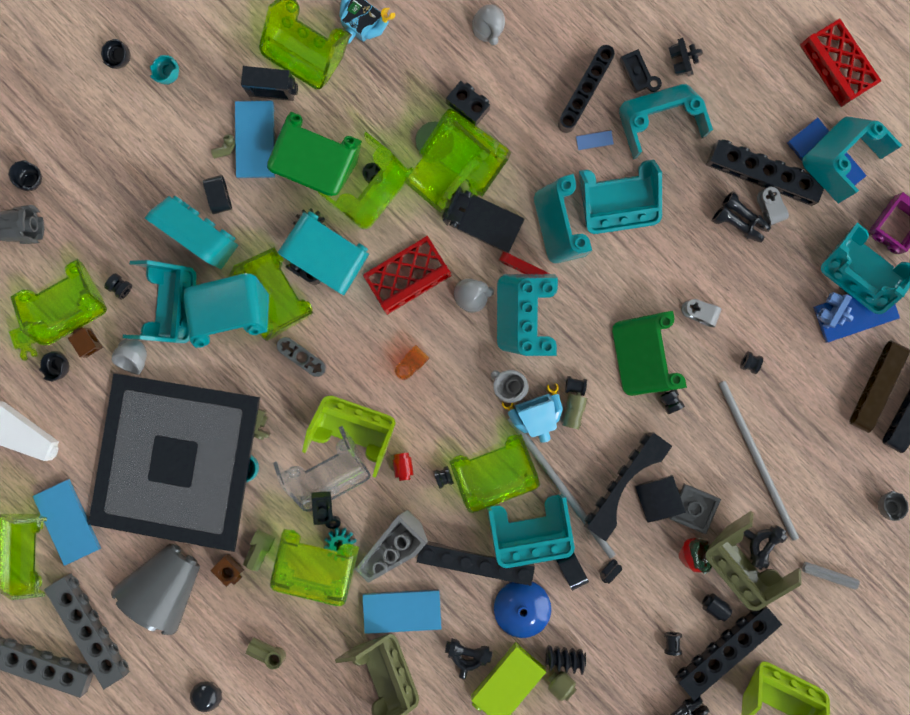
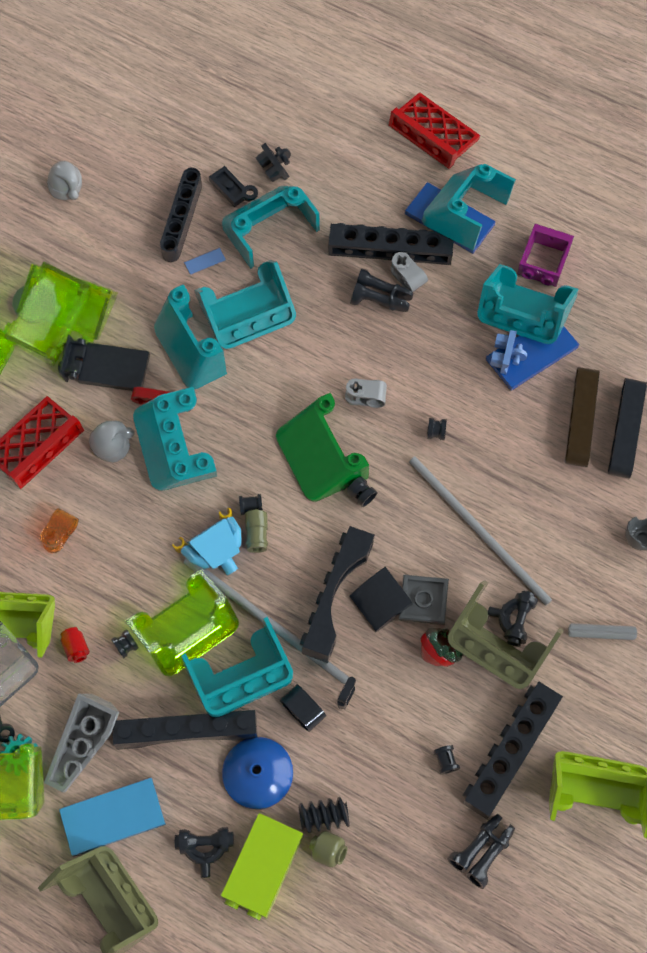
camera: 20 degrees left, 20 degrees down
(464, 107) = (62, 255): black brick -> none
(509, 385) = (174, 519): light grey piece -> none
(716, 607) = (483, 702): black brick -> none

